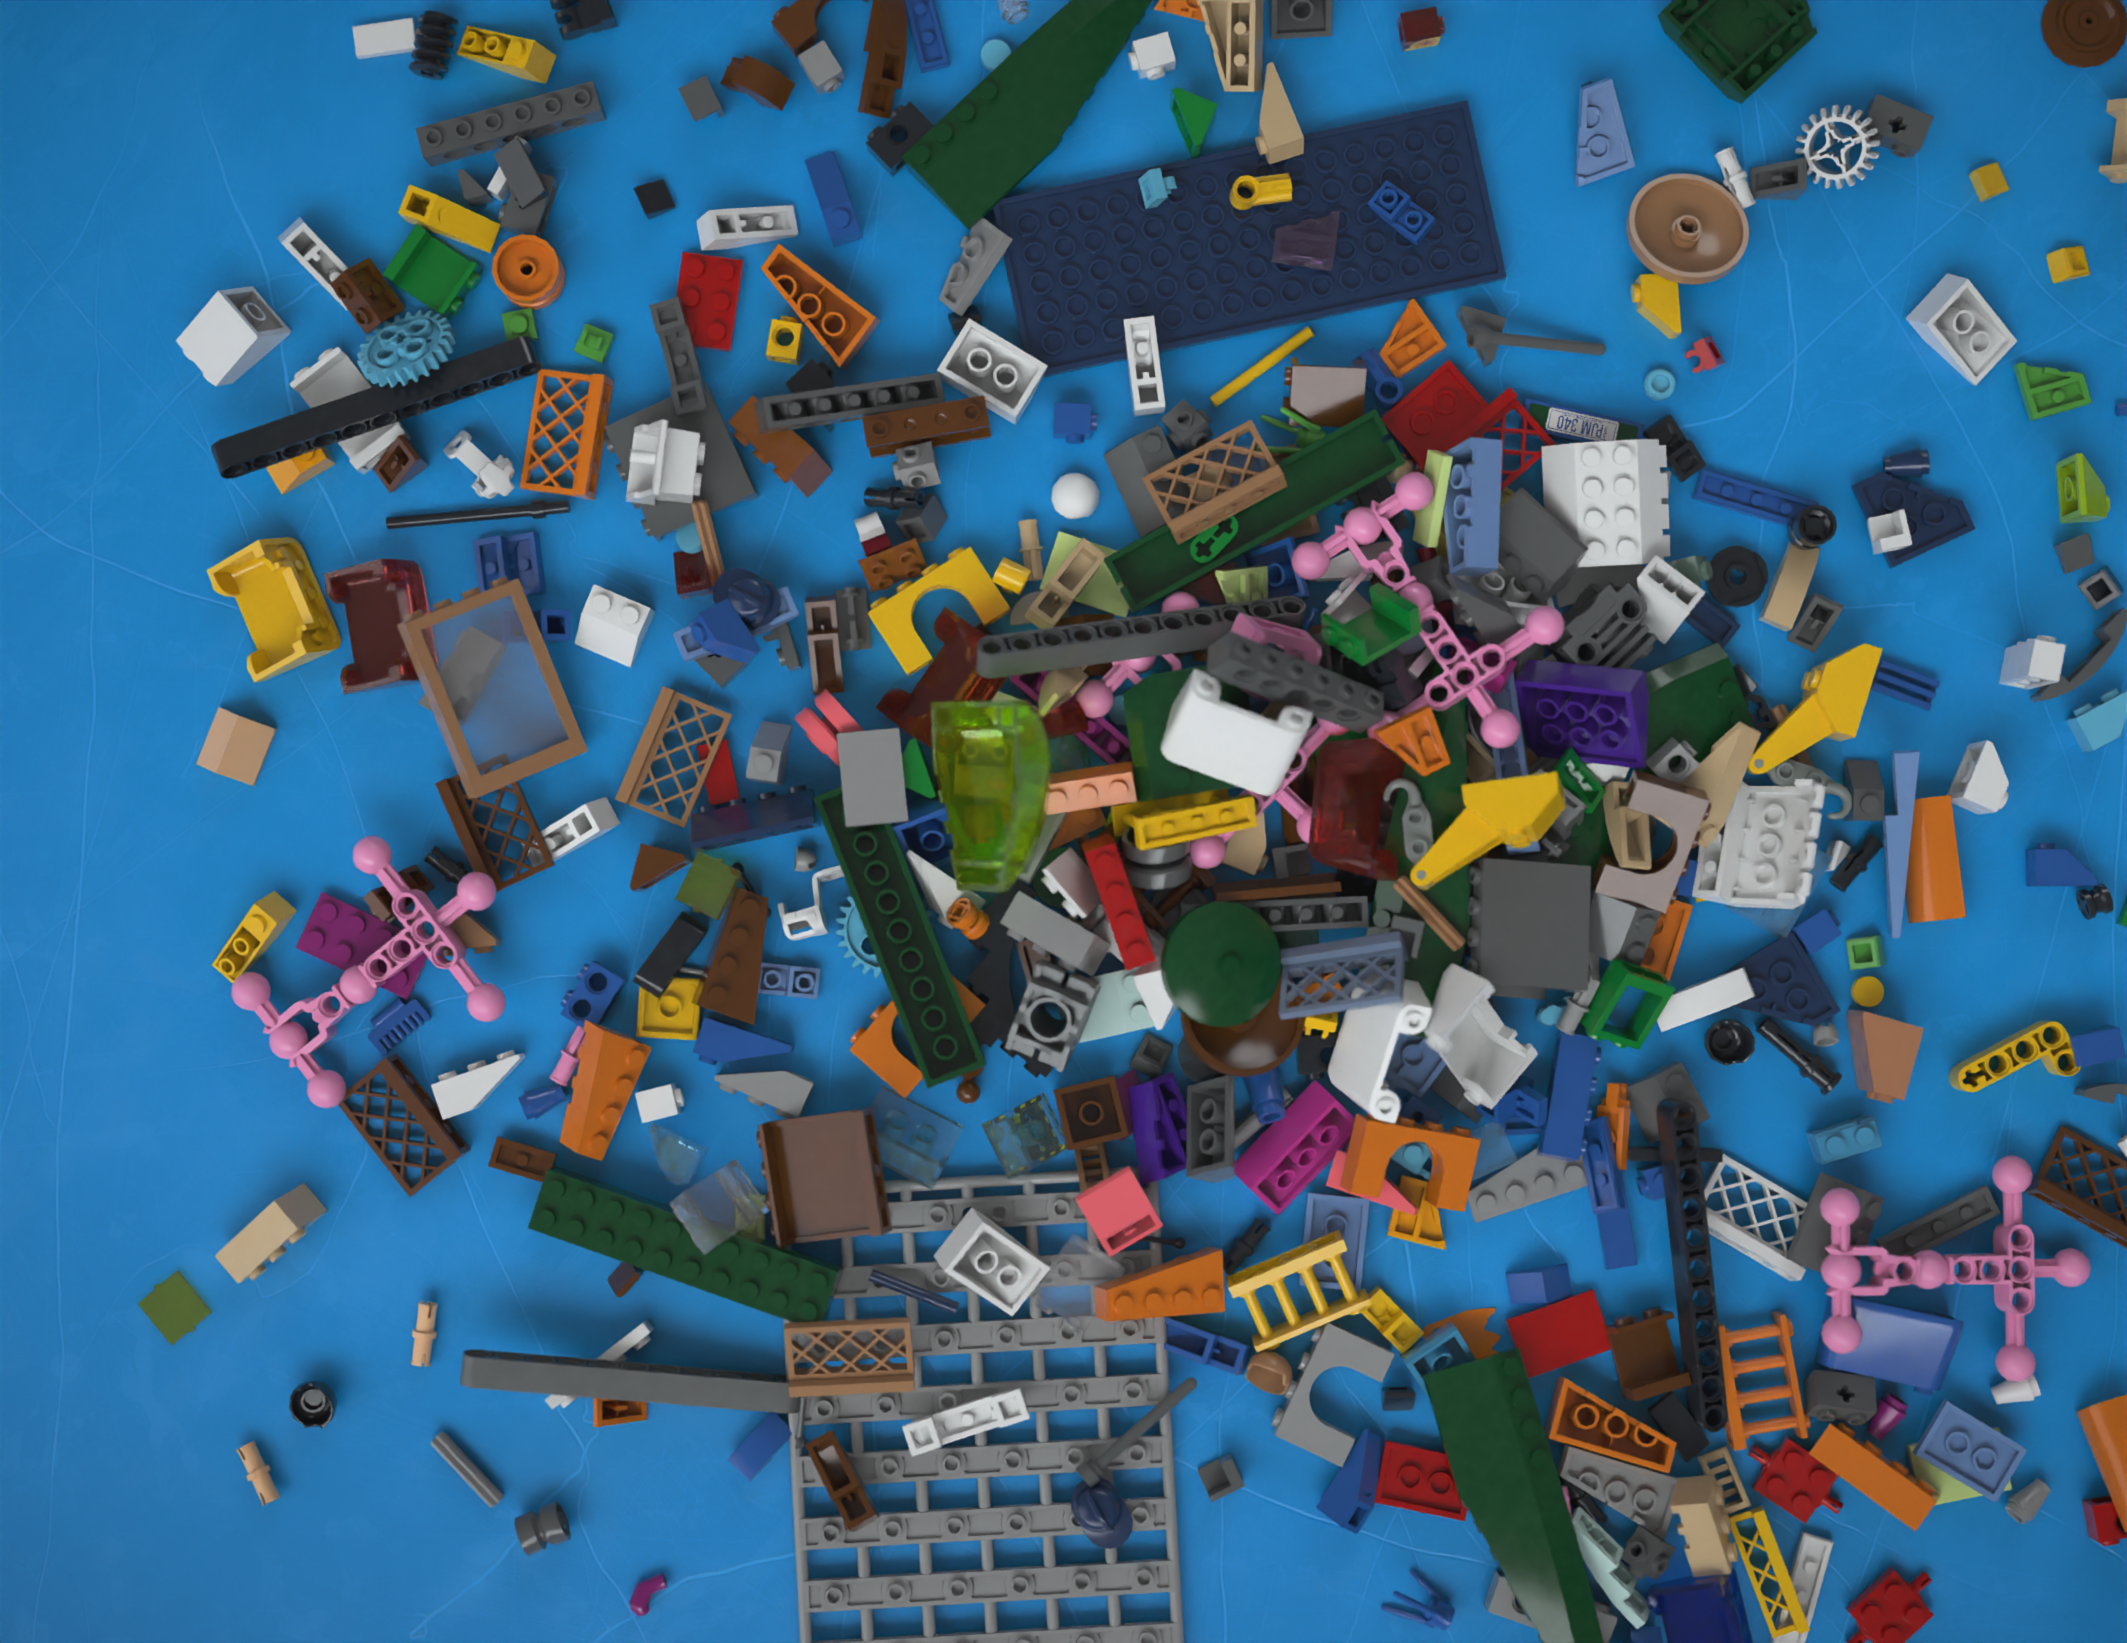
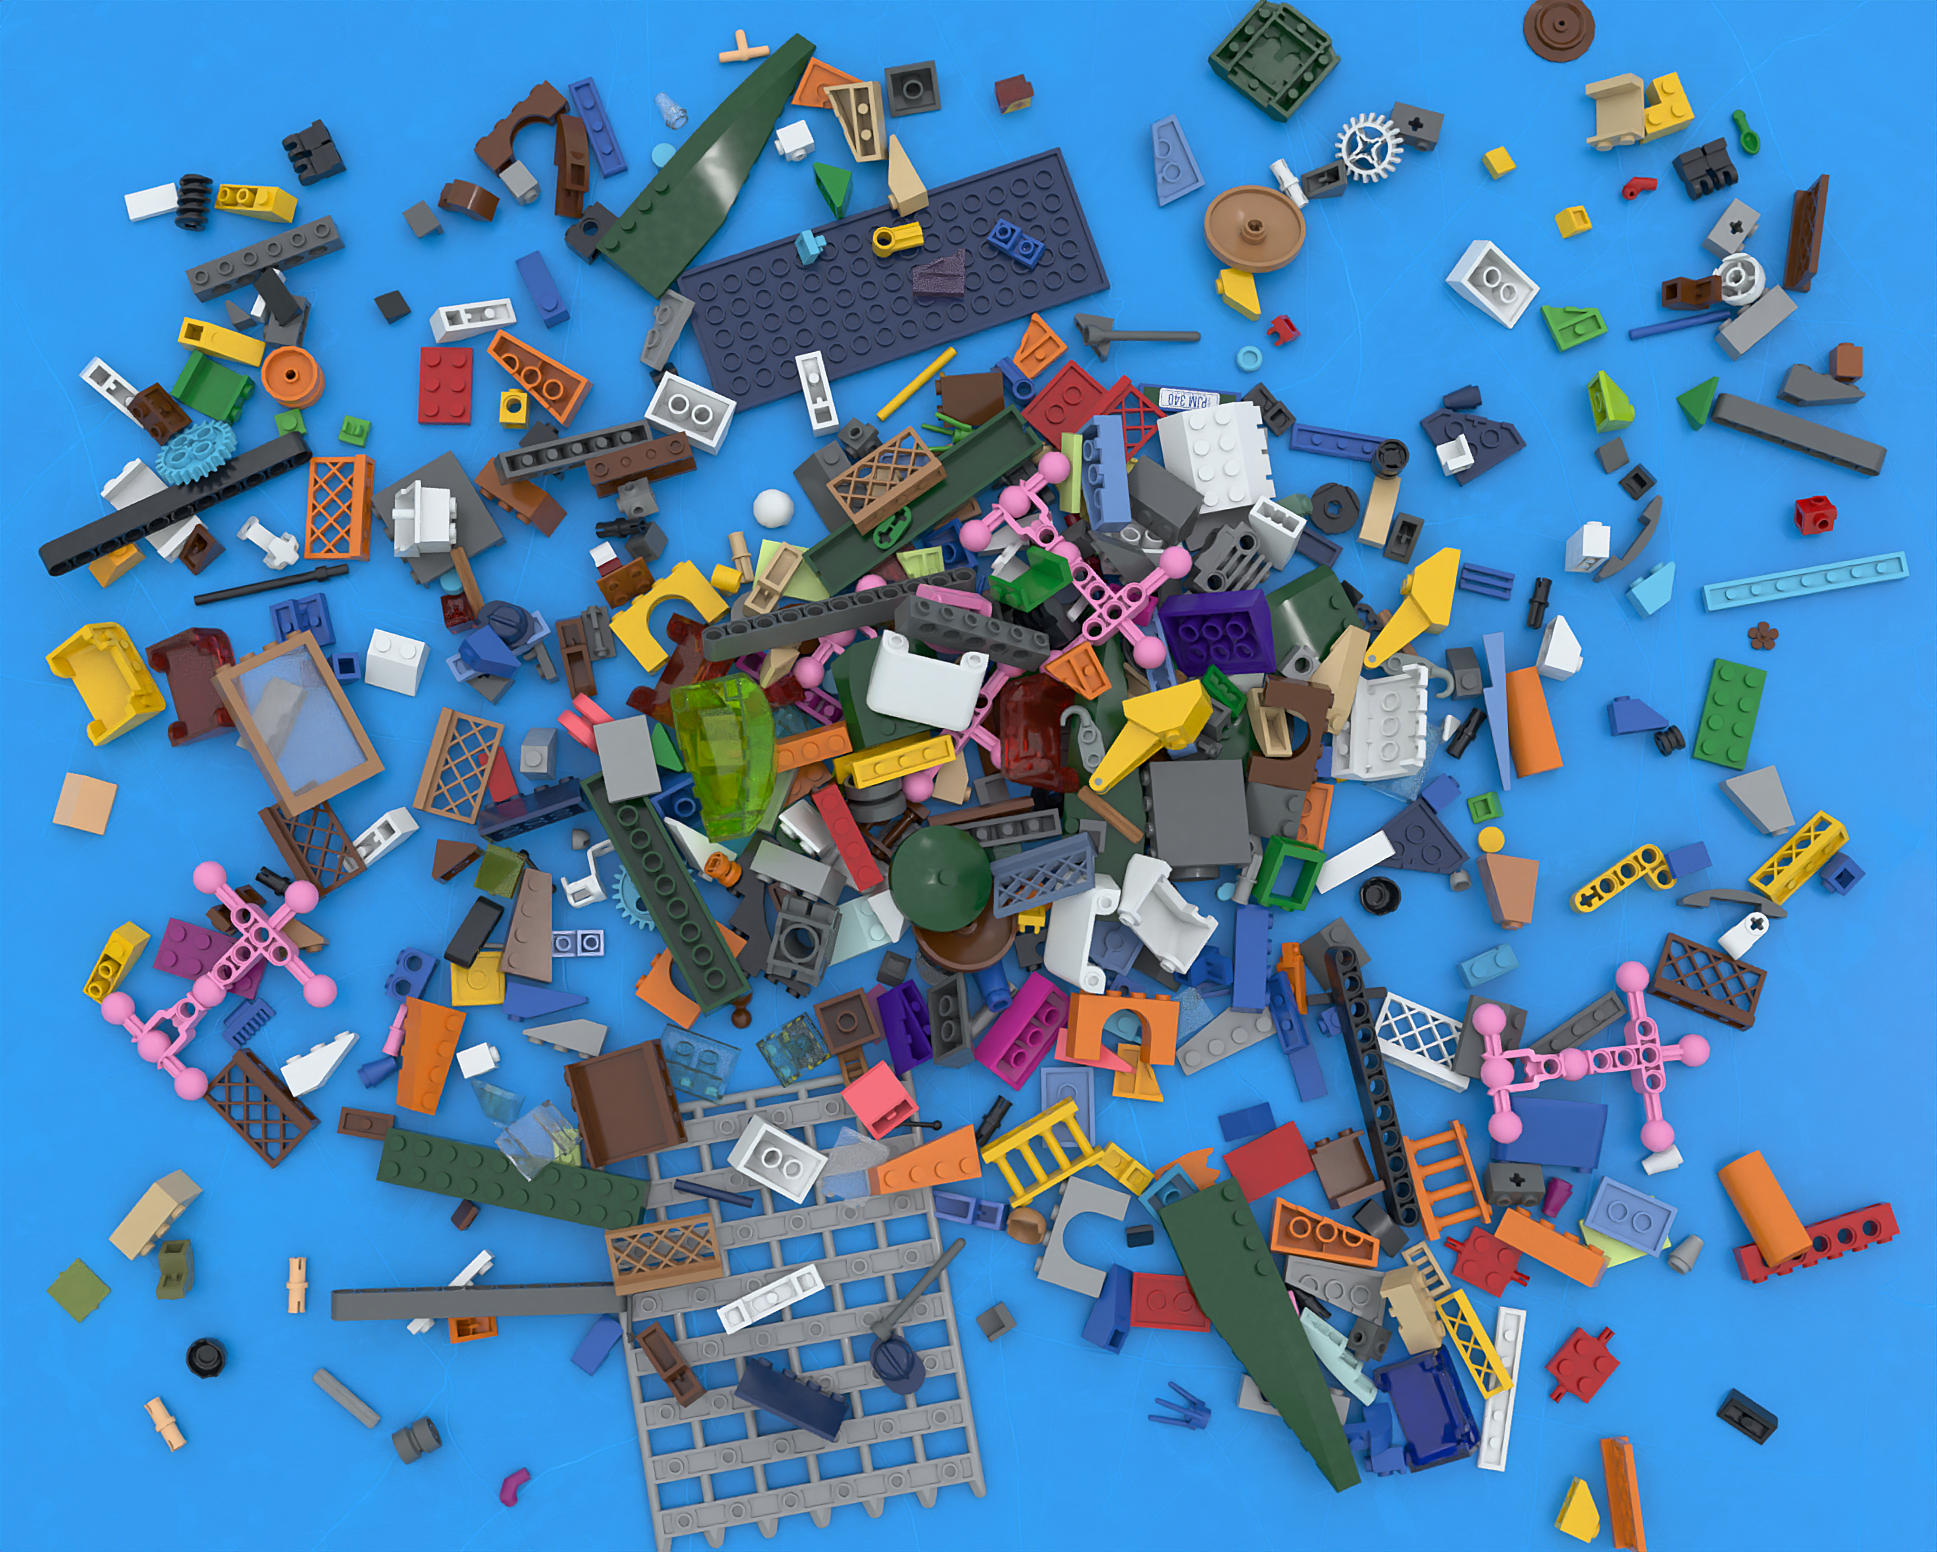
camera: 10 degrees left, 5 degrees down
(232, 334) = (47, 459): white slope -> none
(288, 1300) = (176, 1269): none -> olive brick
(680, 356) = (427, 431): dark grey slope -> none
(978, 1542) = (792, 1399): none -> dark blue slope
(1074, 422) = (764, 447): blue brick -> none
(1810, 1065) = (1451, 907): black pin -> none
(1963, 719) = (1538, 603): none -> black axle

